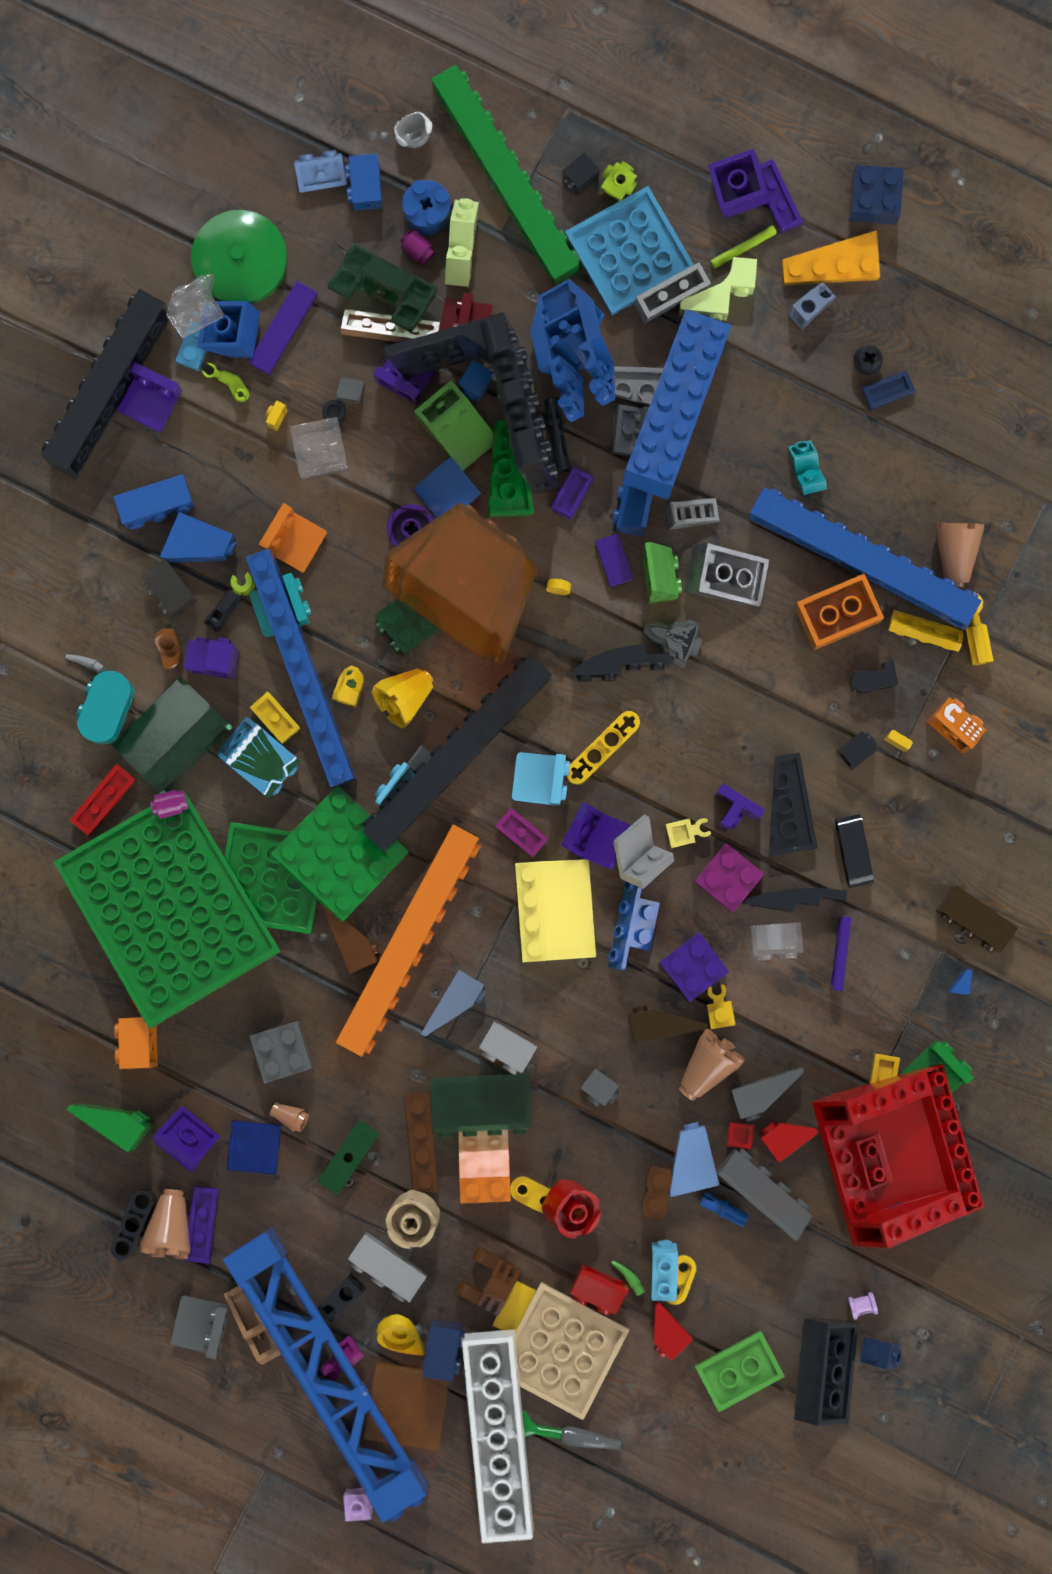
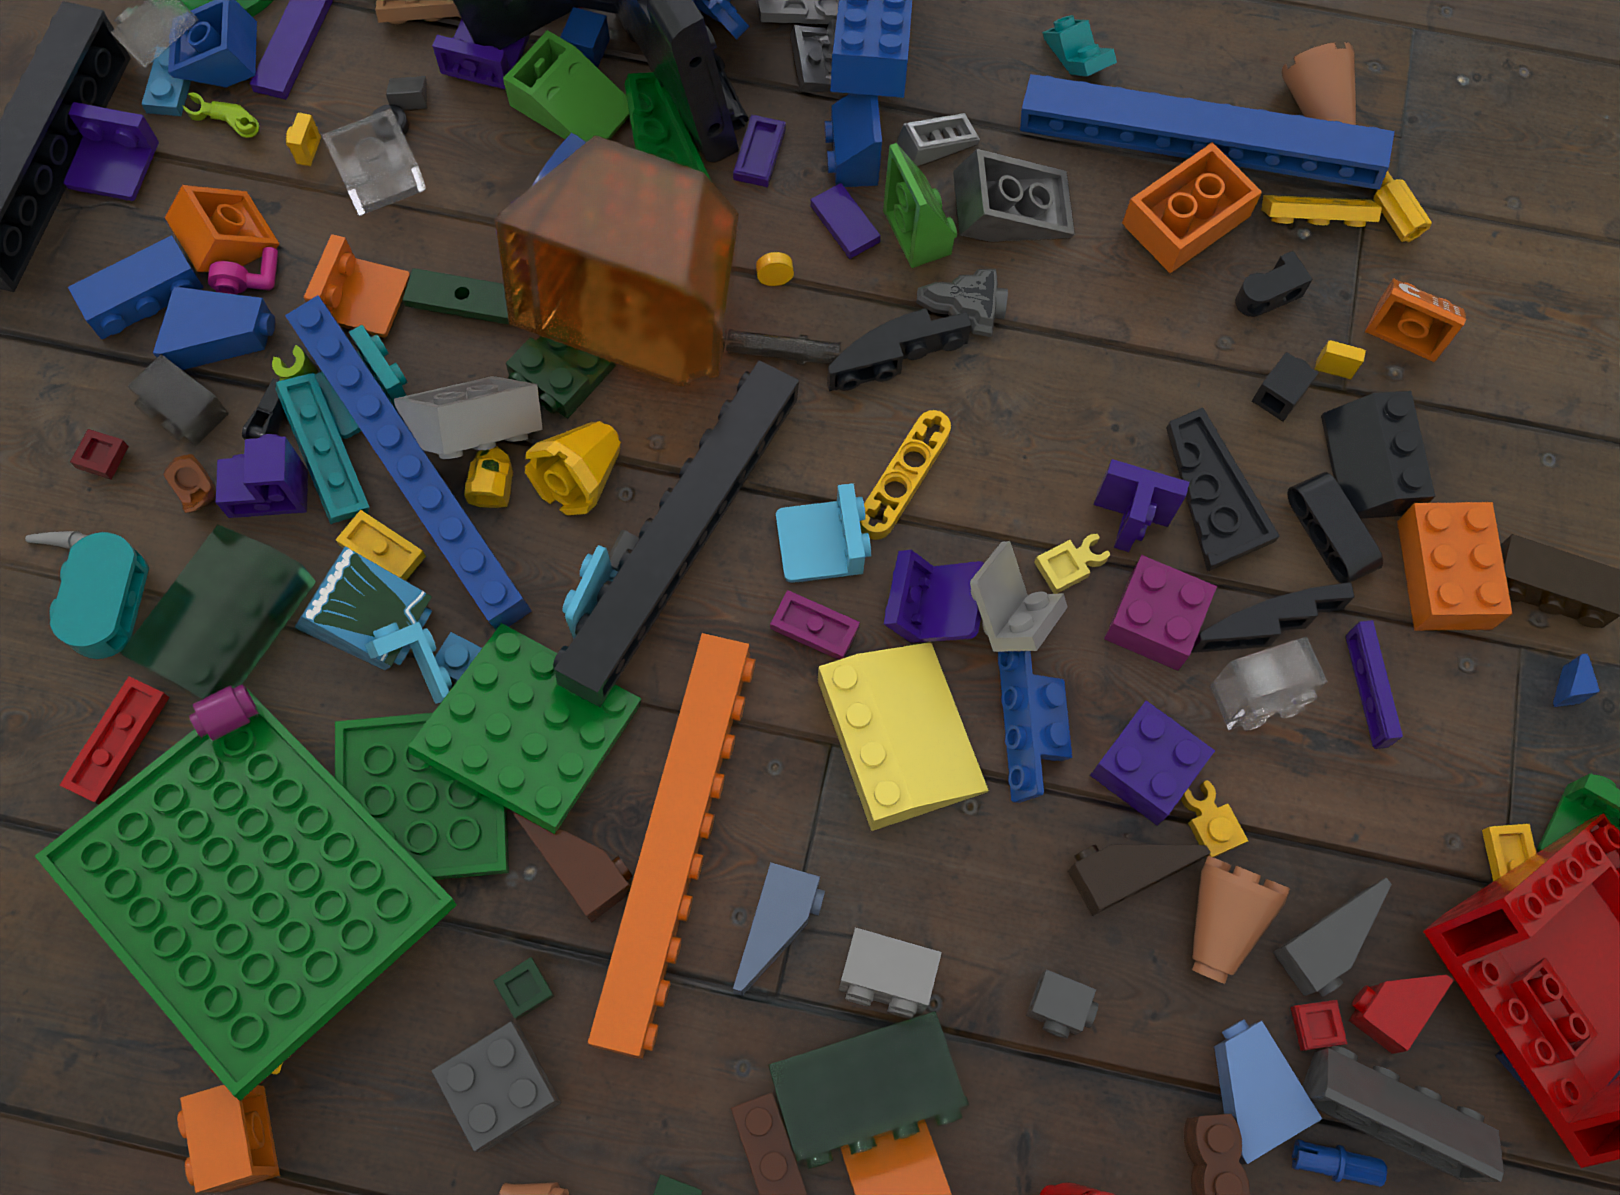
camera: 20 degrees left, 15 degrees down
(116, 612) = (99, 454): none -> dark red plate
(213, 471) = (218, 226): none -> orange slope
(213, 509) = (235, 279): none -> dark pink plate
(251, 644) = (322, 447): none -> teal plate
(275, 786) = (422, 645): none -> medium azure bracket
(307, 799) = (456, 655): none -> dark azure plate
(307, 1002) = (523, 988): none -> dark green plate
(343, 551) = (445, 293): none -> dark green tile
(346, 648) = (471, 415): none -> light grey slope
(897, 811) = (1379, 454): none -> black slope
(916, 894) = (1454, 566): none -> orange brick

